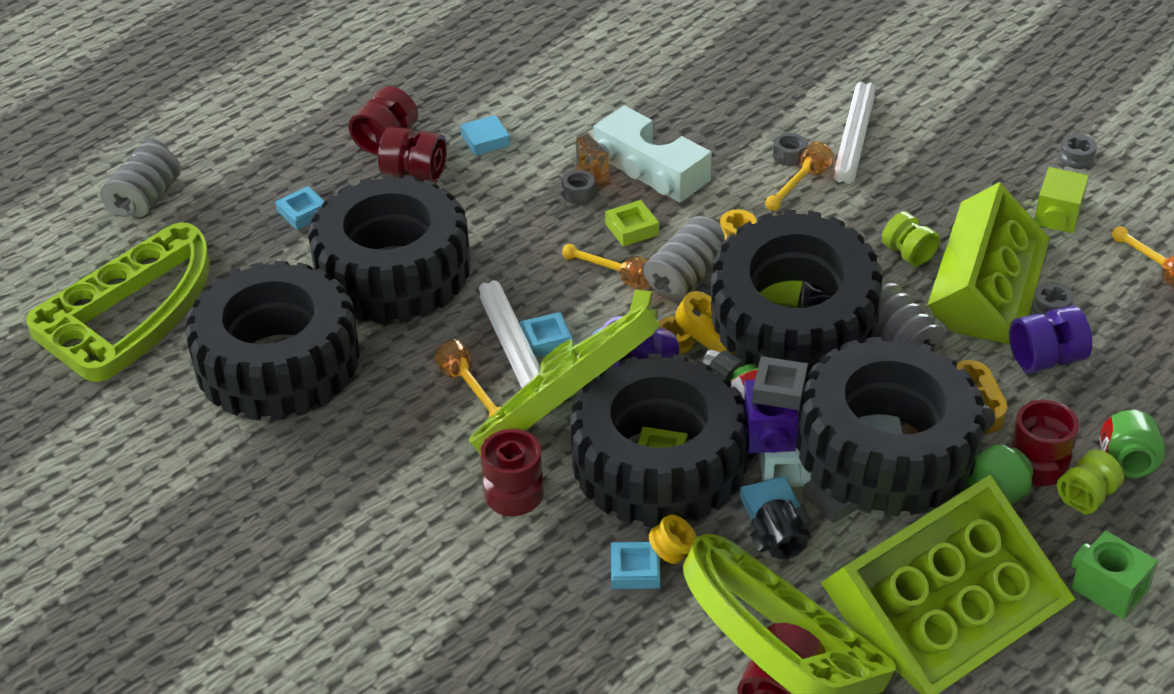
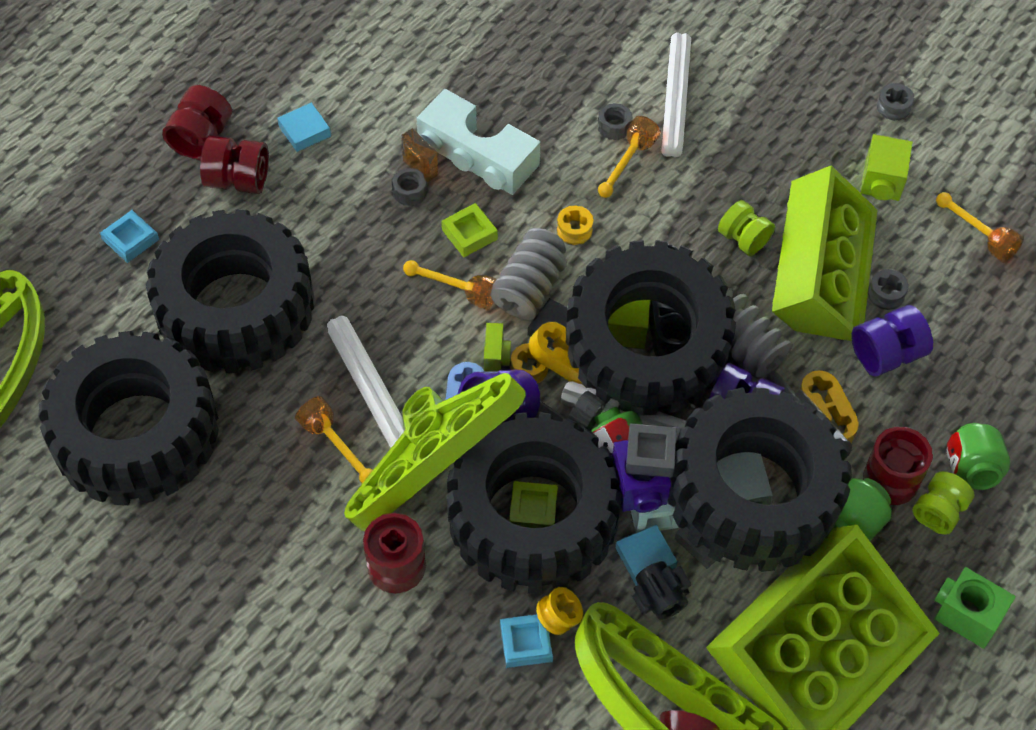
camera: 10 degrees left, 15 degrees up
(545, 333) = (402, 373): medium azure tile -> none

